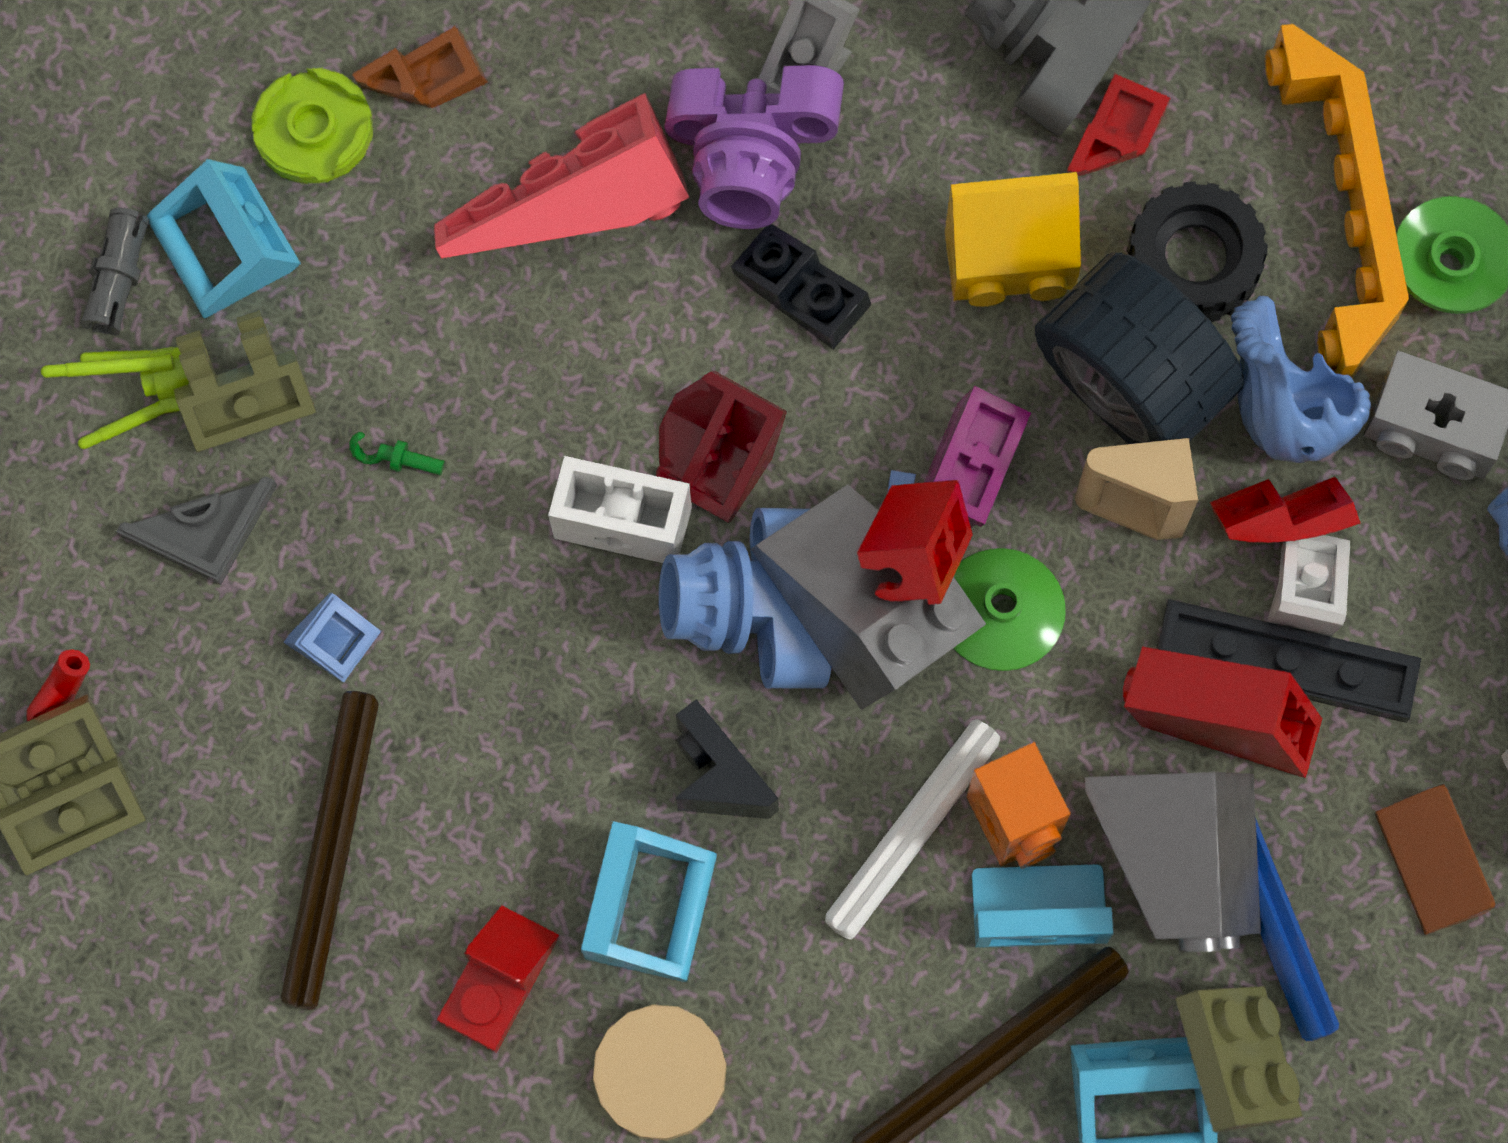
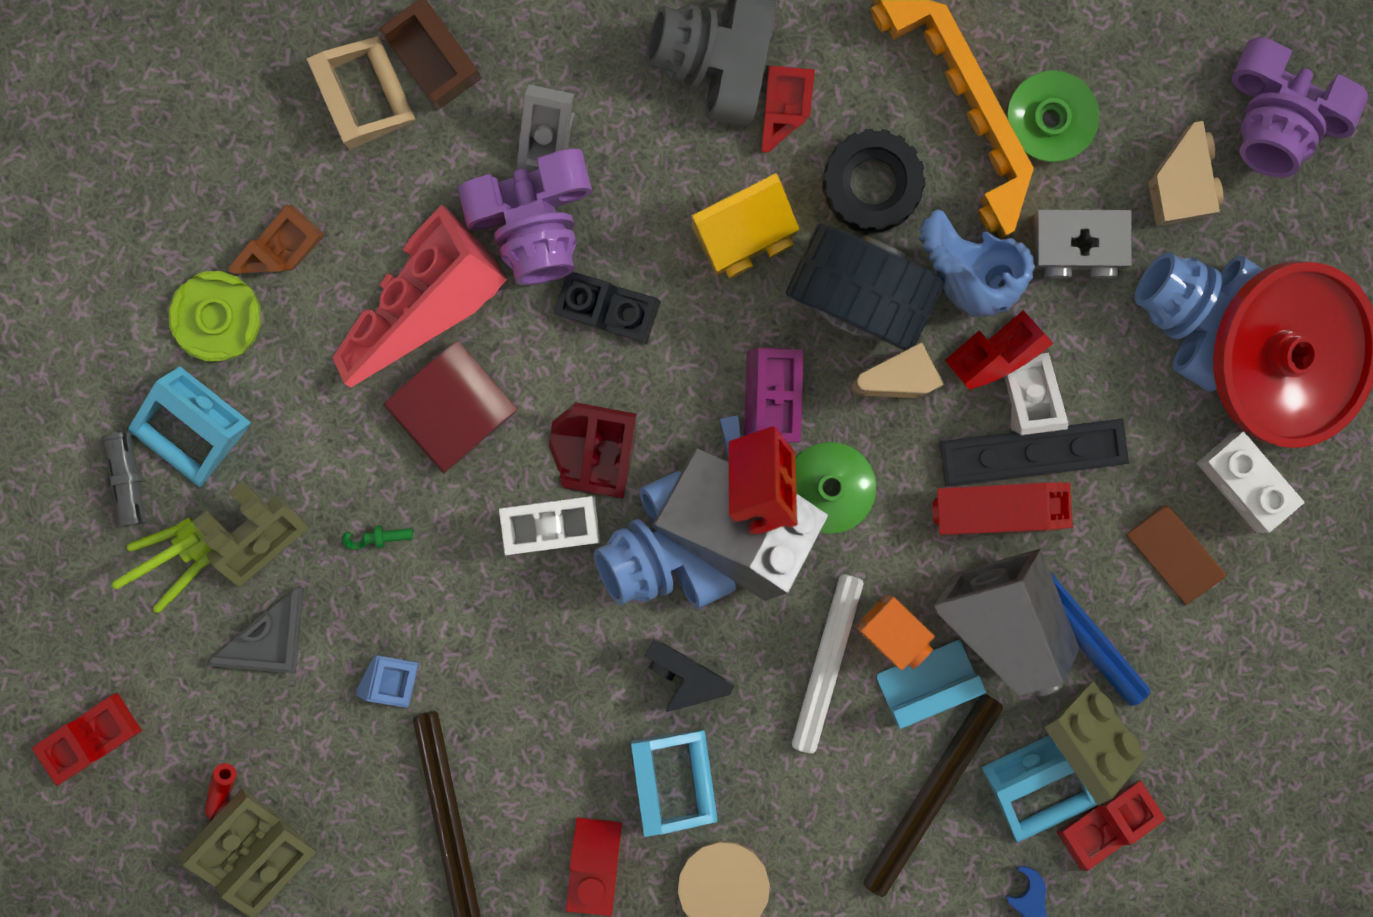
camera: 20 degrees left, 15 degrees up
(554, 331) = (450, 407): none -> dark red slope

